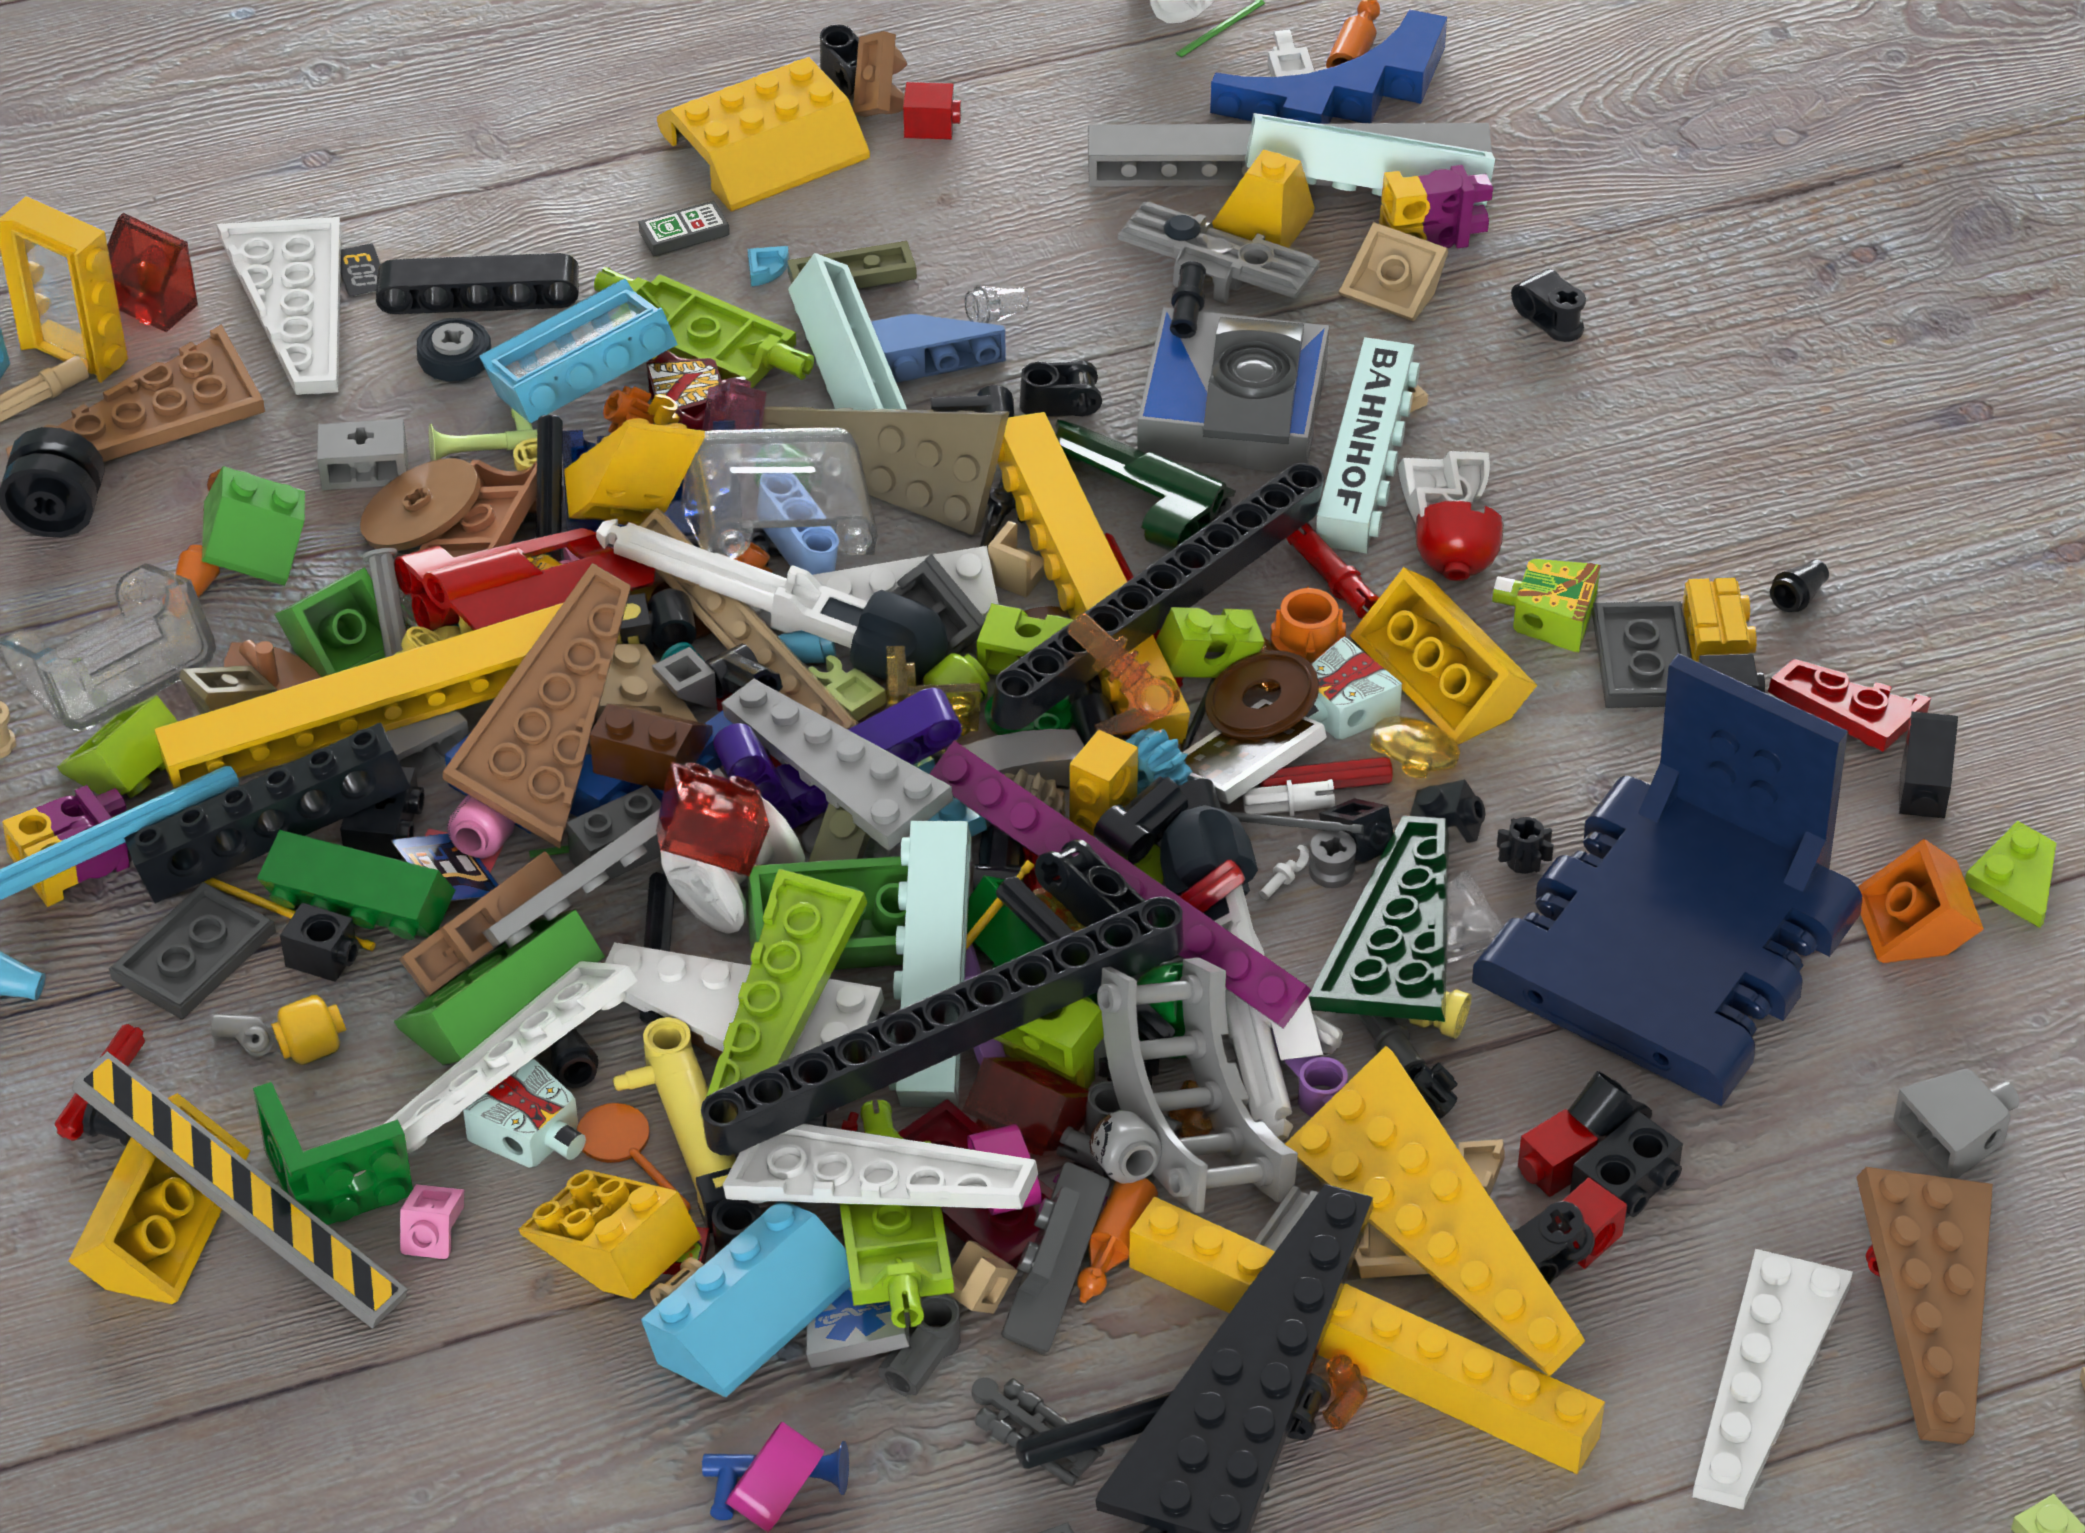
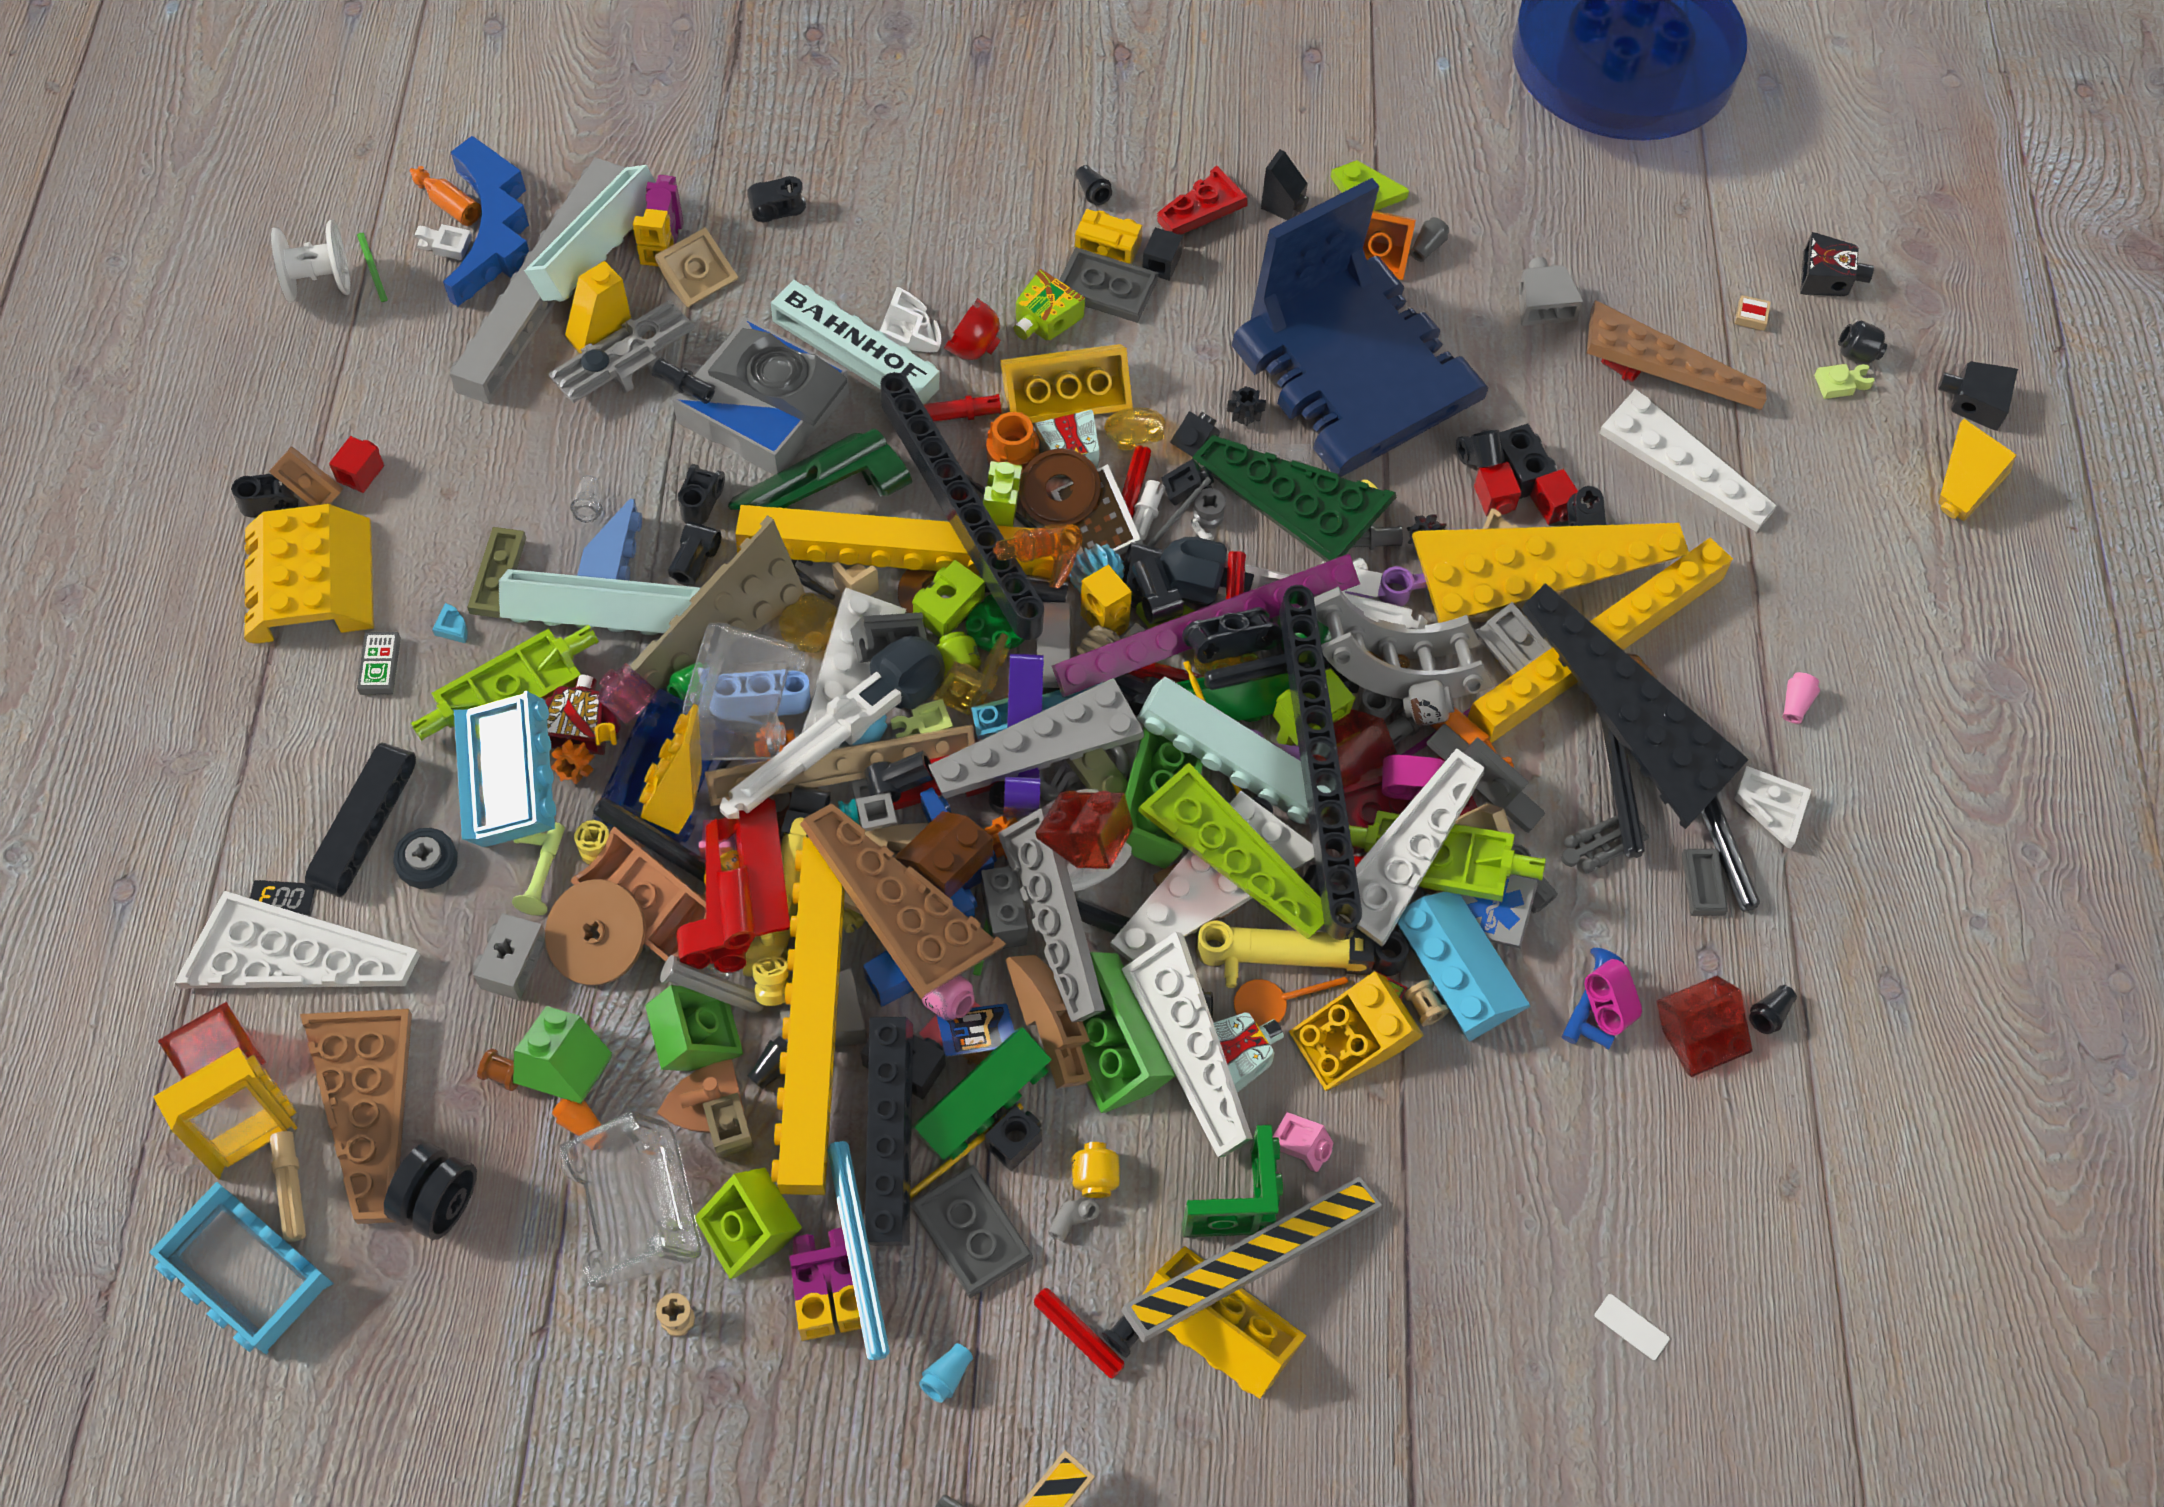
camera: 70 degrees left, 15 degrees up
(928, 536) = (808, 623): none -> clear yellow dish
(1968, 961) = (1431, 236): none -> dark grey cone

